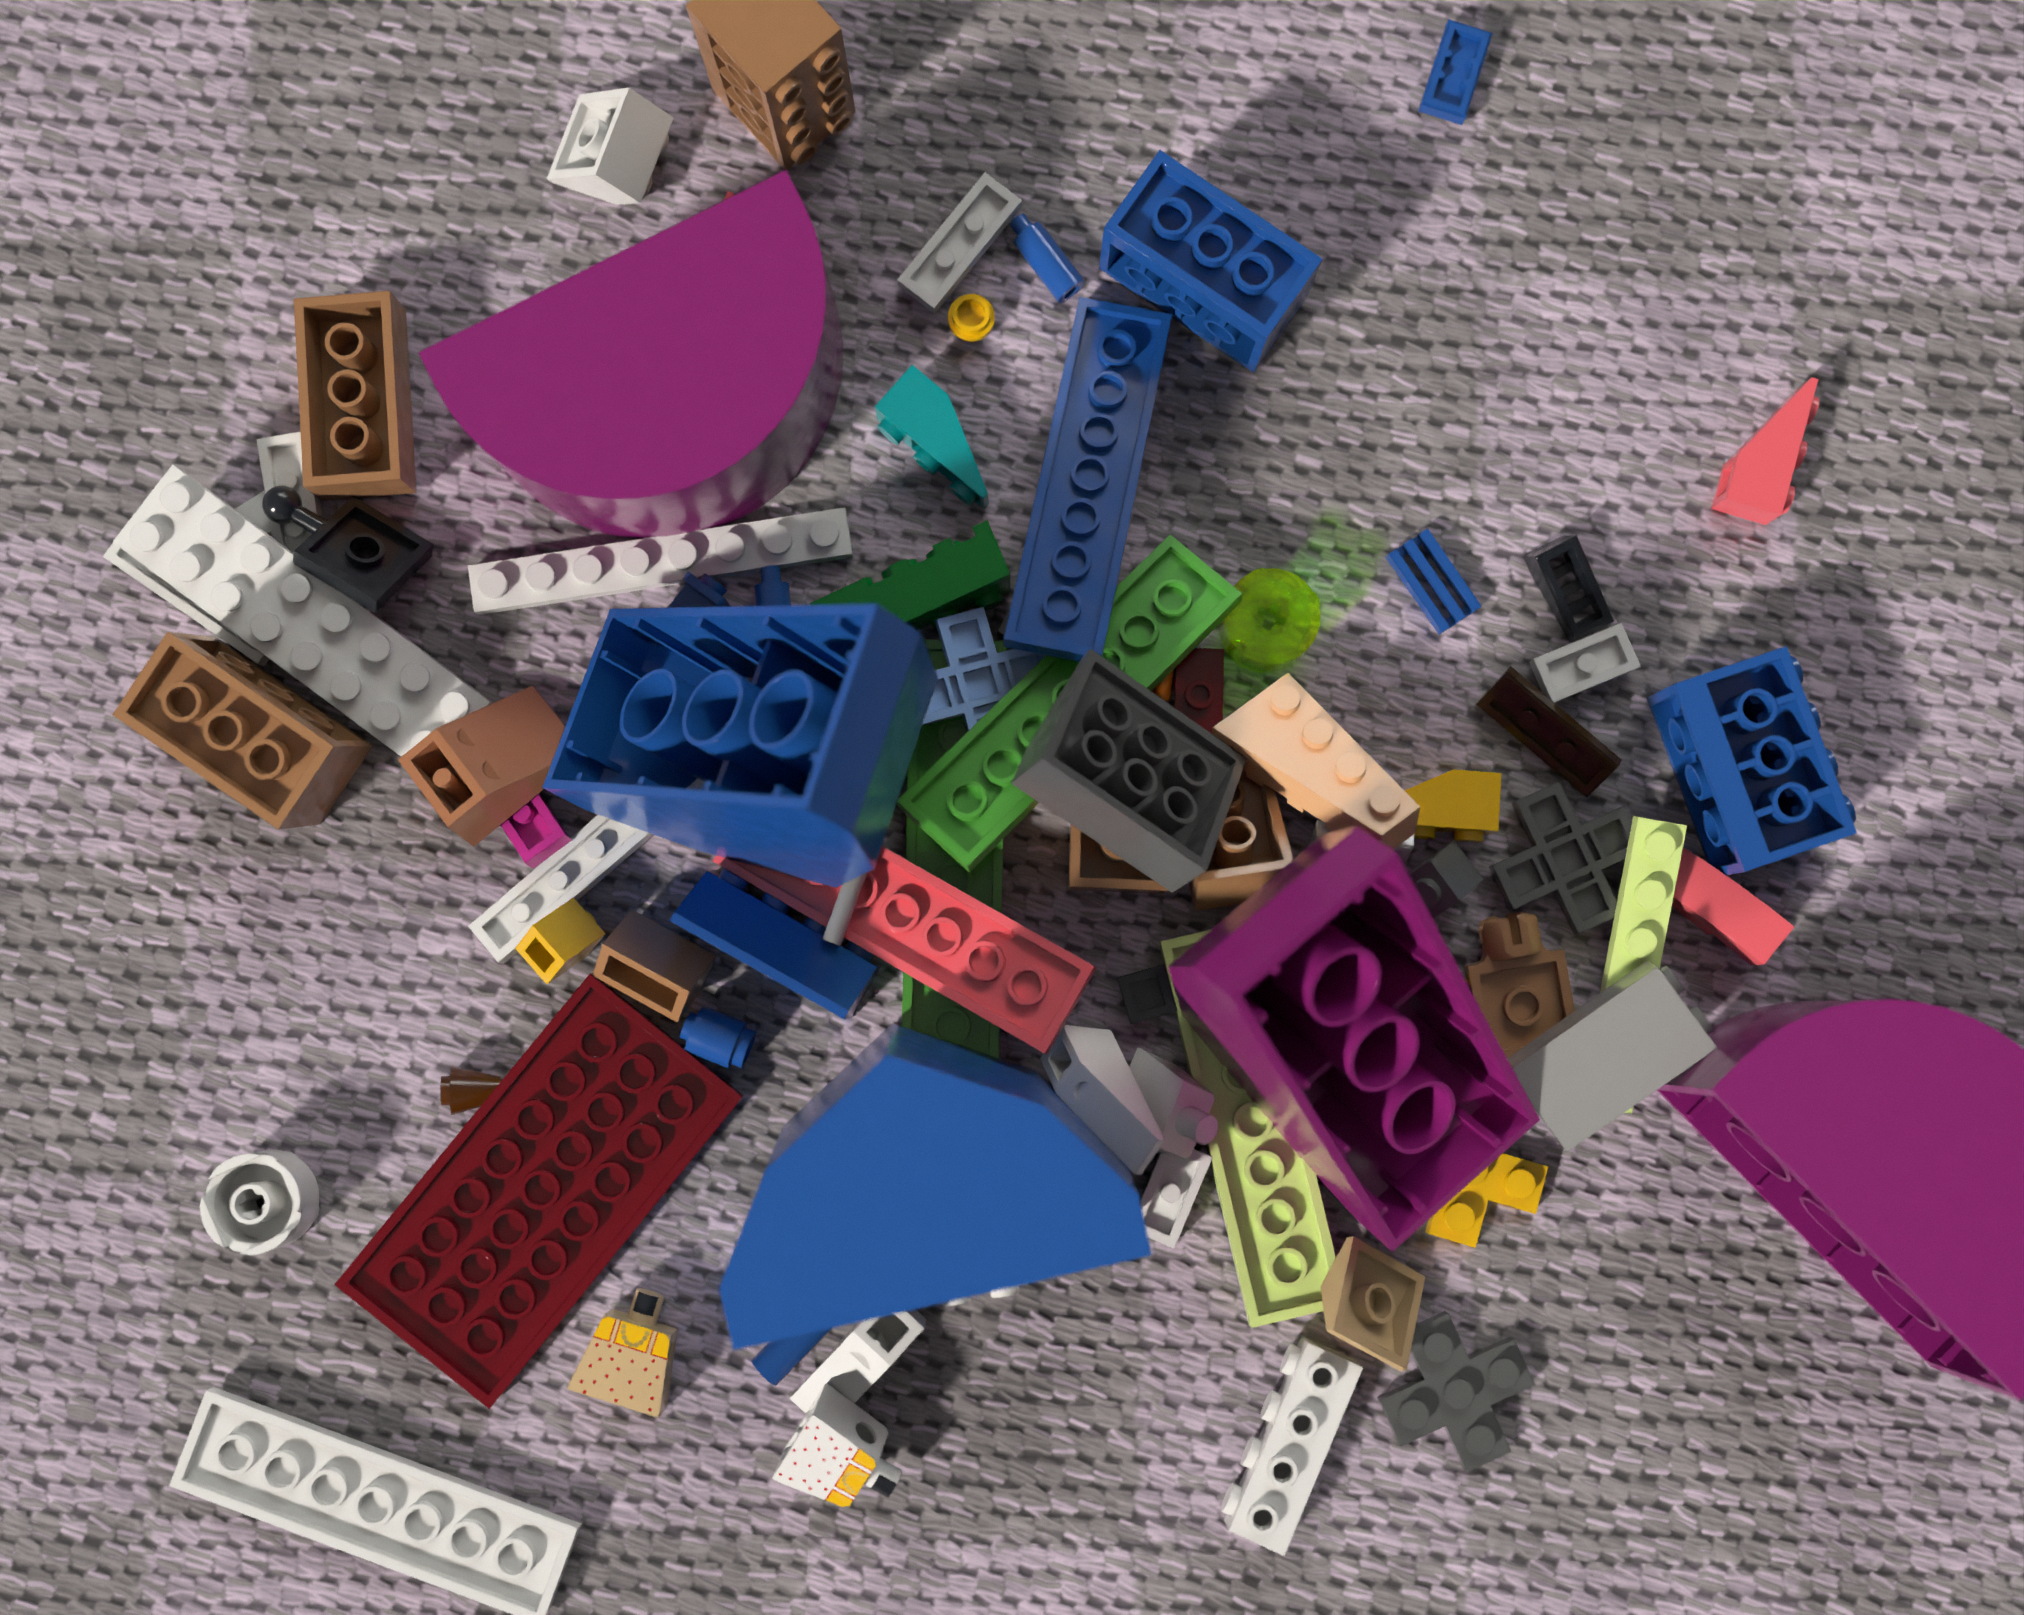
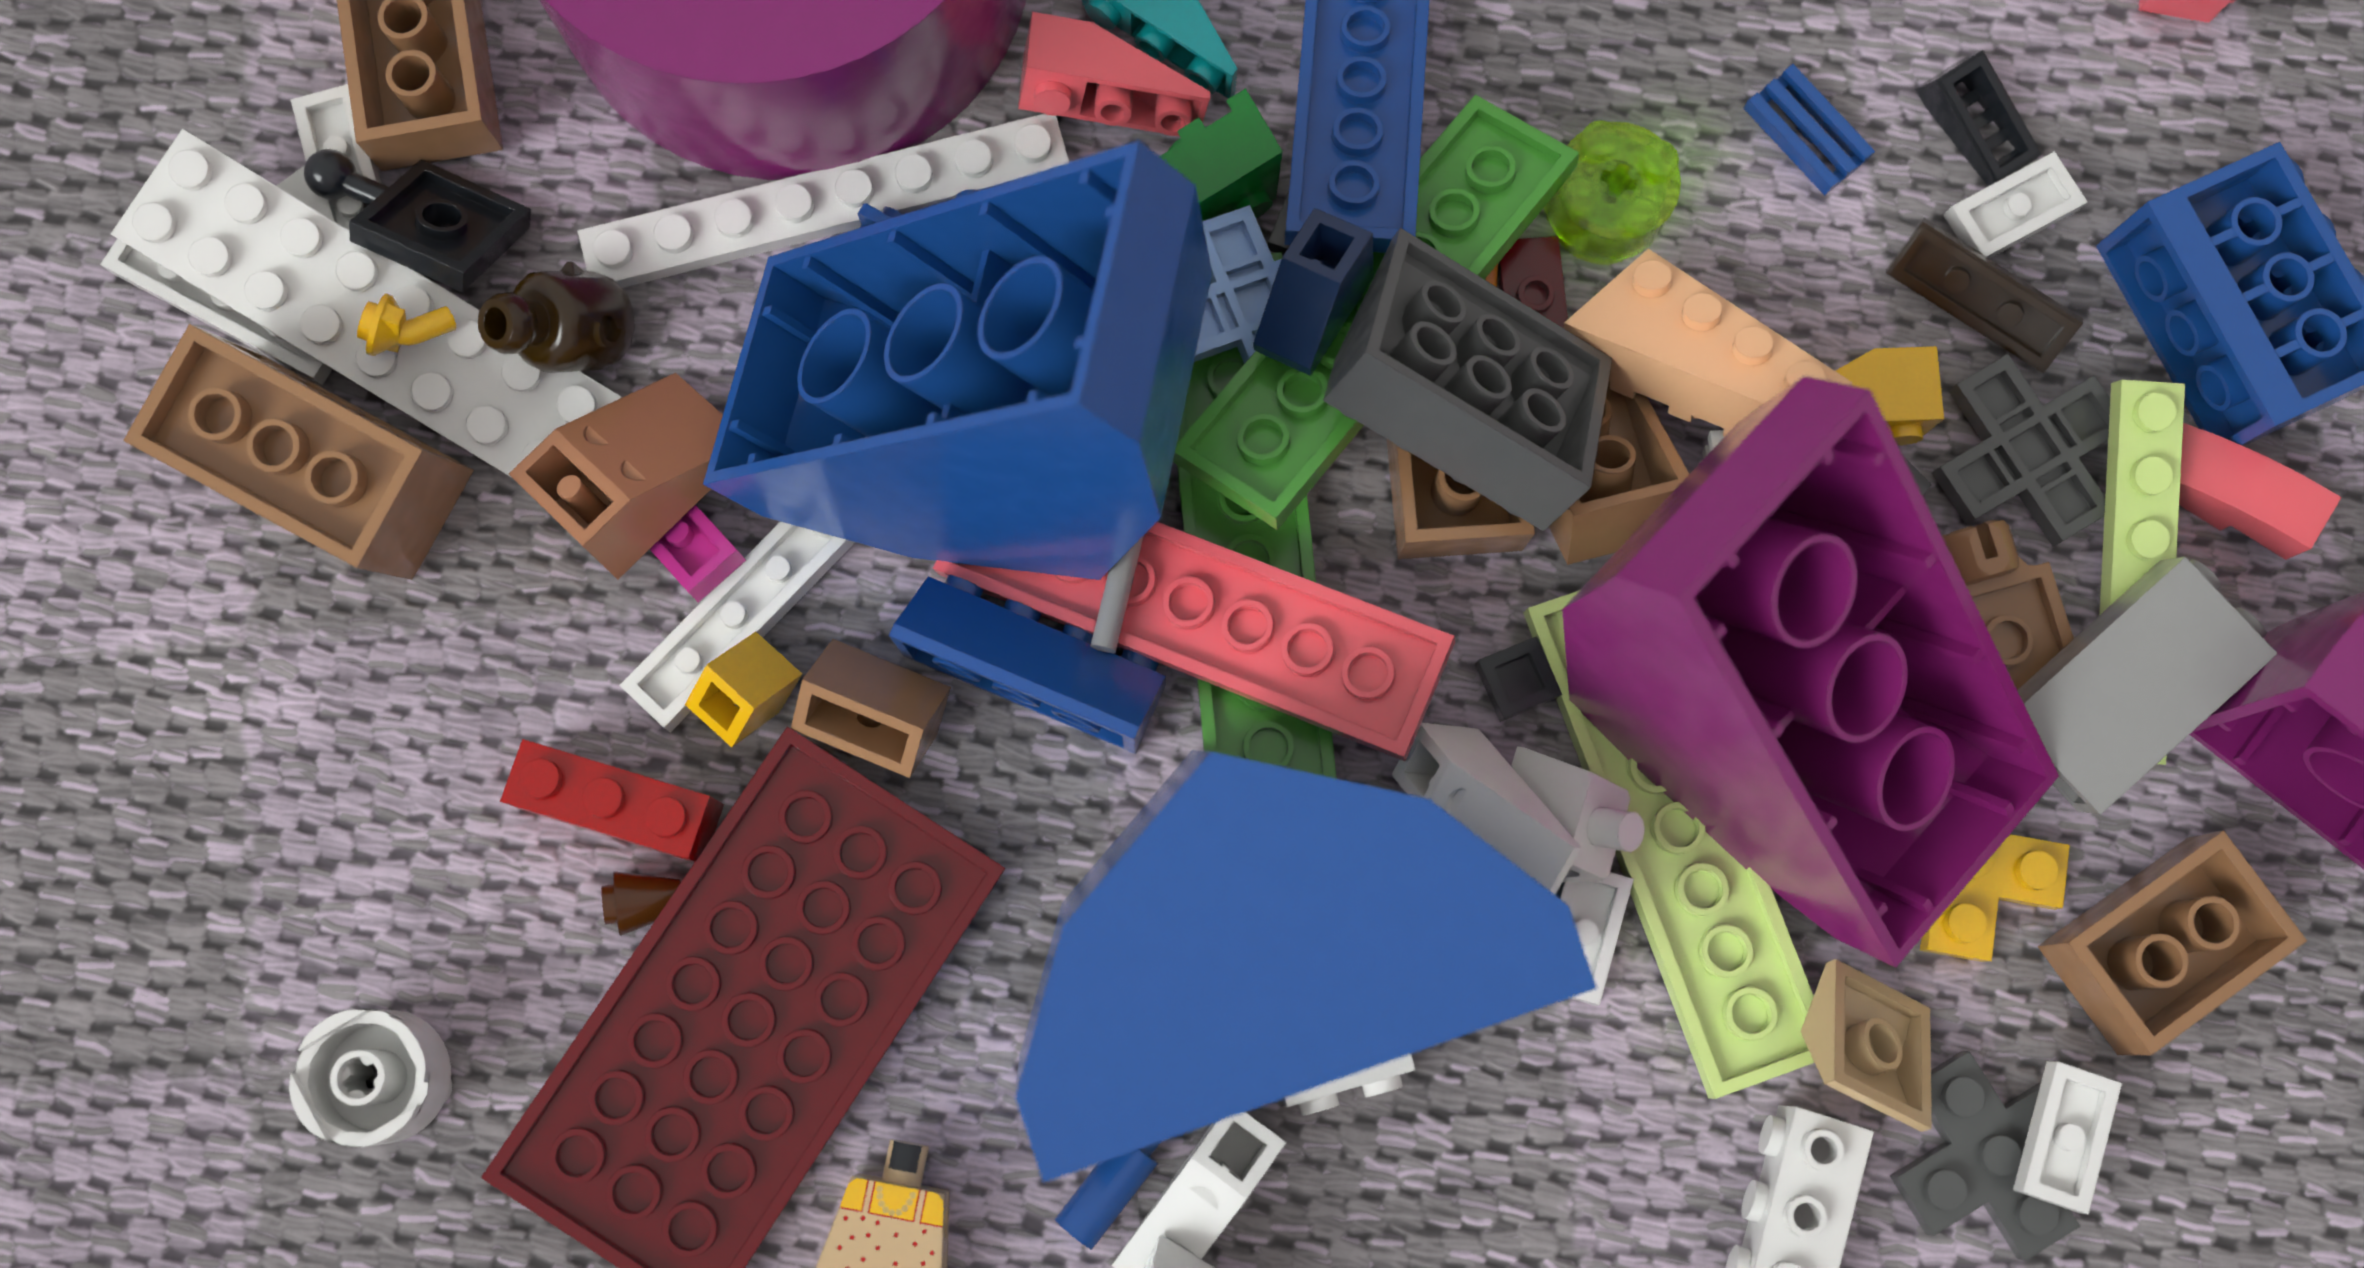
camera: 10 degrees left, 5 degrees down
(315, 637) = (386, 326): none -> yellow plate
(447, 642) = (560, 320): none -> dark brown piece
(454, 1015) = (611, 801): none -> red brick
(717, 1037) = (964, 795): blue brick -> none
(877, 484) = (1097, 77): none -> coral slope
(1018, 692) = (1315, 291): none -> dark blue slope
(1507, 1388) = (2067, 1137): none -> white plate
(1610, 1252) = (2172, 944): none -> medium nougat brick

